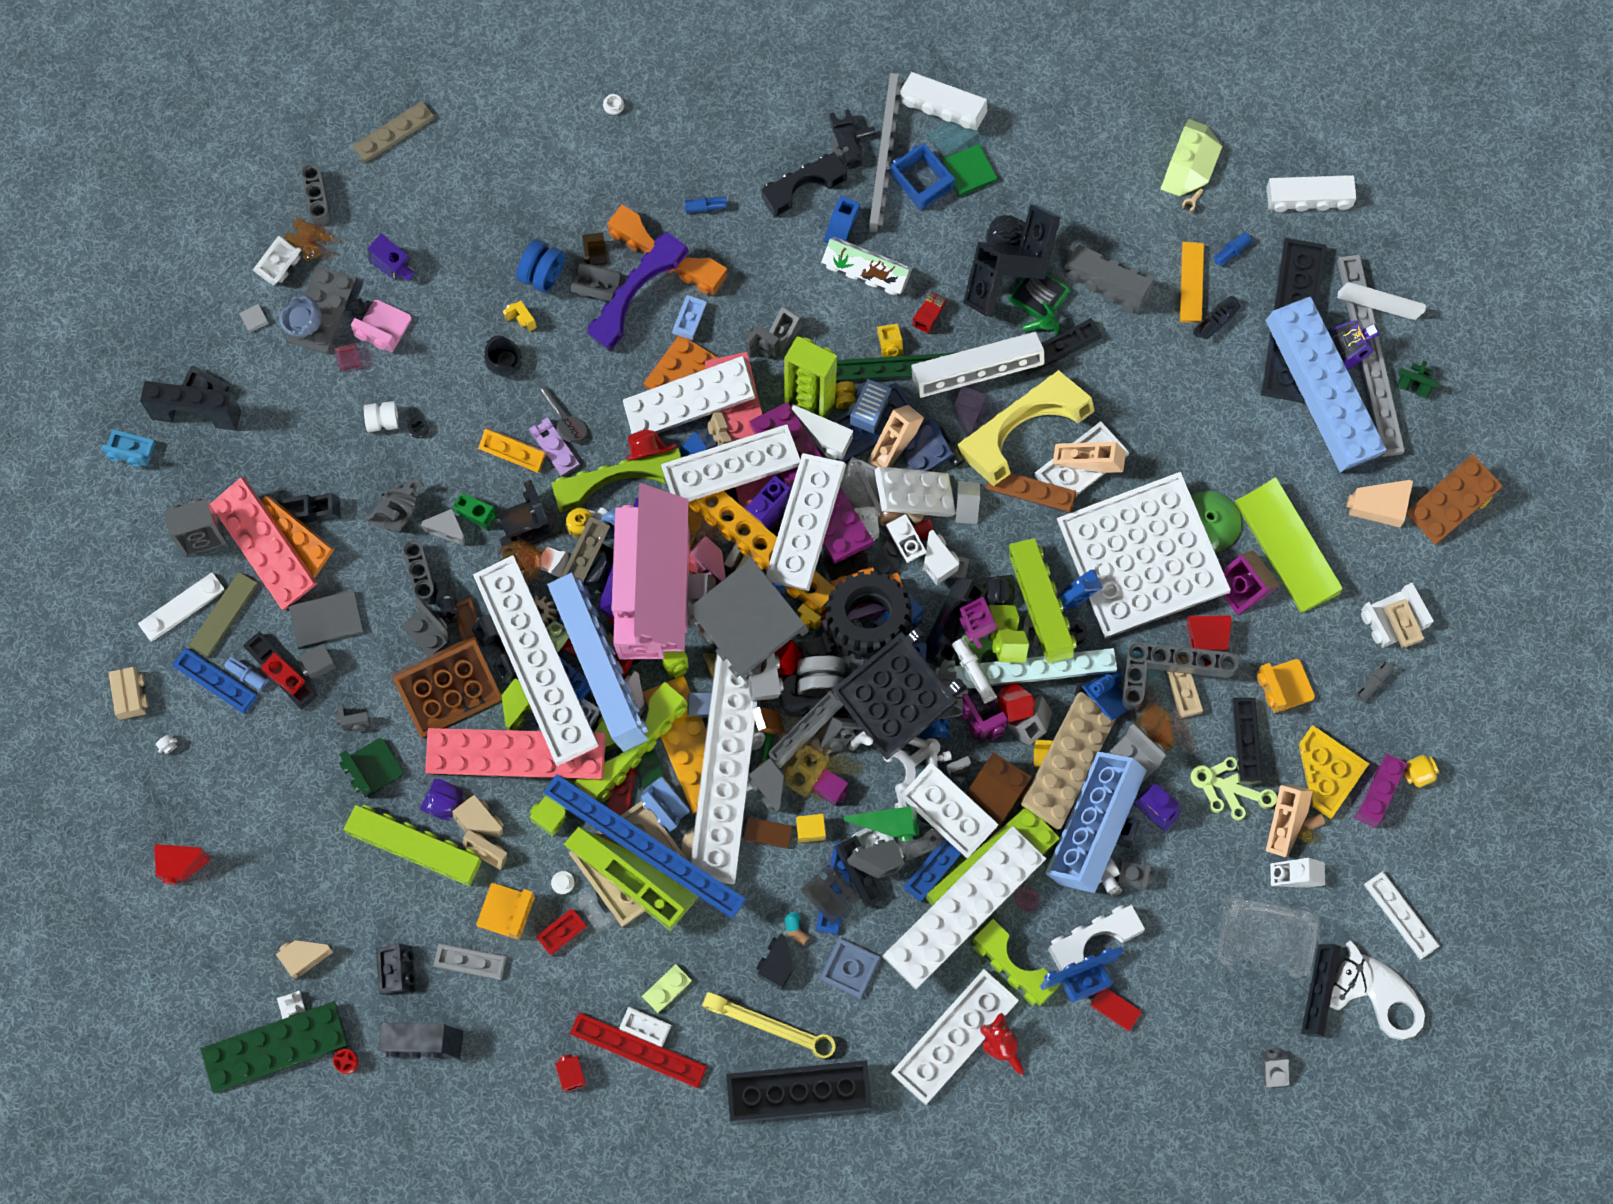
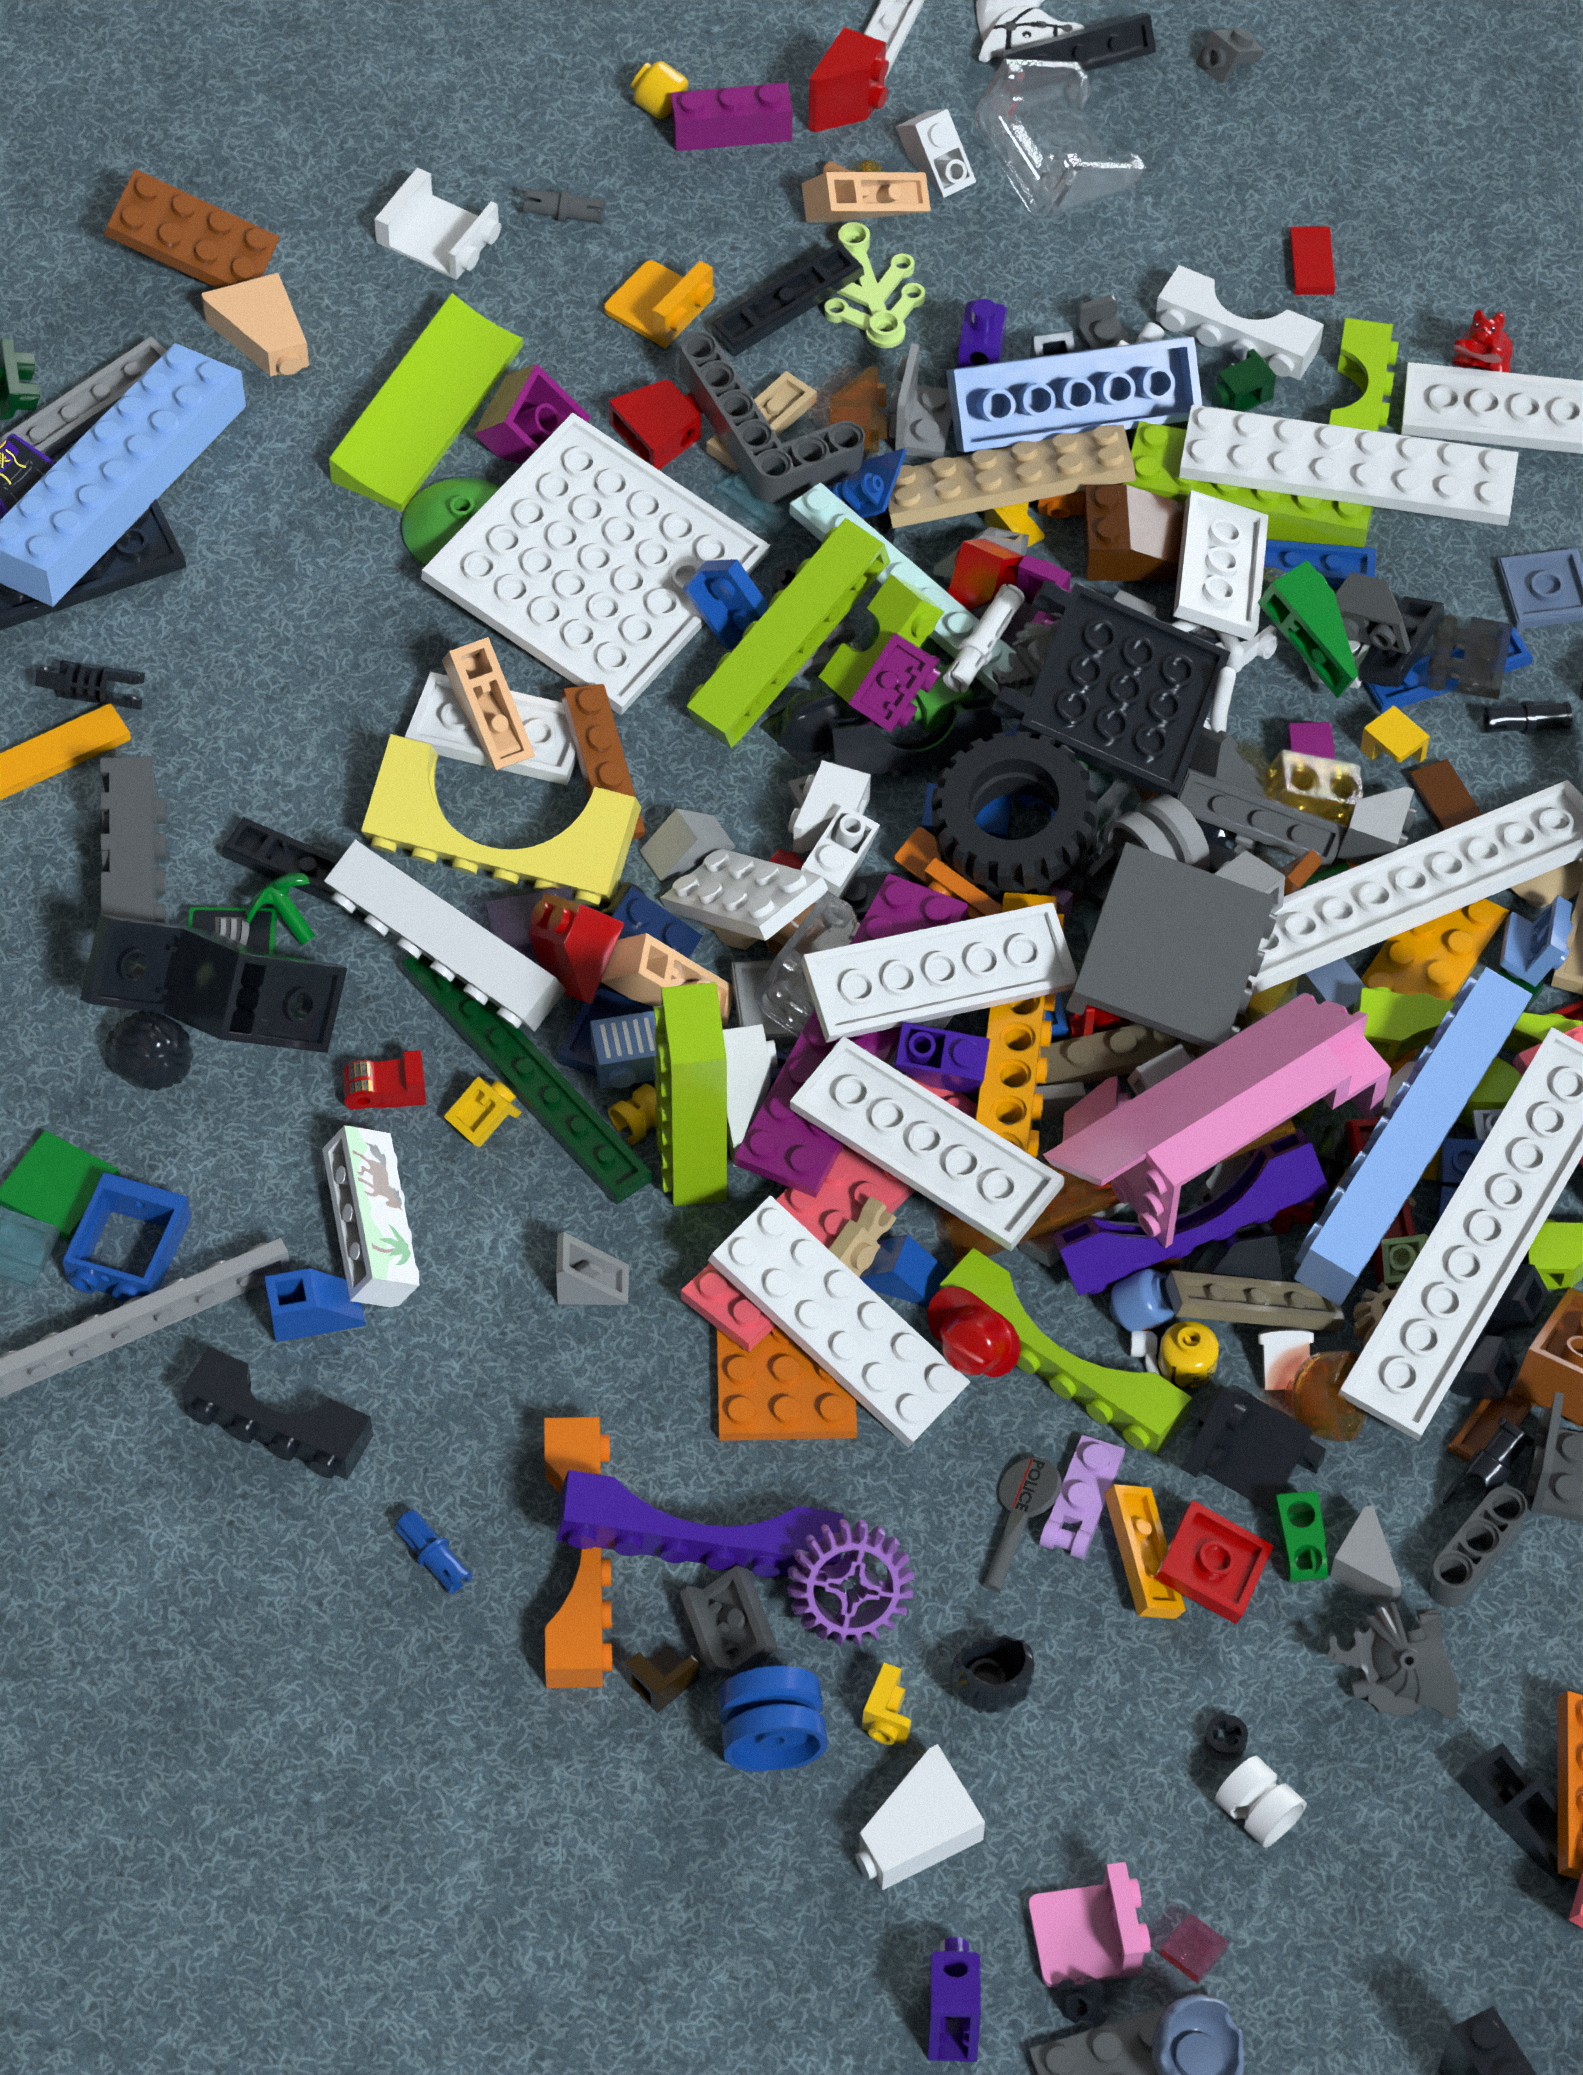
camera: 125 degrees left, 15 degrees down
(465, 297) = (919, 1823): none -> white slope
(487, 469) = (1213, 1562): none -> red plate
(574, 328) = (886, 1592): none -> medium lavender gear
(613, 104) = (334, 1844): white plate -> none
(689, 317) = (677, 1433): light blue plate -> none
(764, 340) = (650, 1284): dark grey bracket -> none
(785, 900) = (1527, 717): none -> black pin
(793, 929) = (1557, 685): arm -> none
(809, 617) = (1078, 921): yellow tile -> none
(846, 140) = (139, 1400): black piece -> none
(937, 408) = (573, 943): none -> red slope
(1057, 913) = (1244, 384): none -> dark green brick
(1084, 978) = (1307, 293): blue bracket -> none
(1328, 770) = (748, 192): yellow plate -> none
(1364, 854) = (848, 81): none -> red slope
(1403, 623) = (444, 209): tan plate -> none

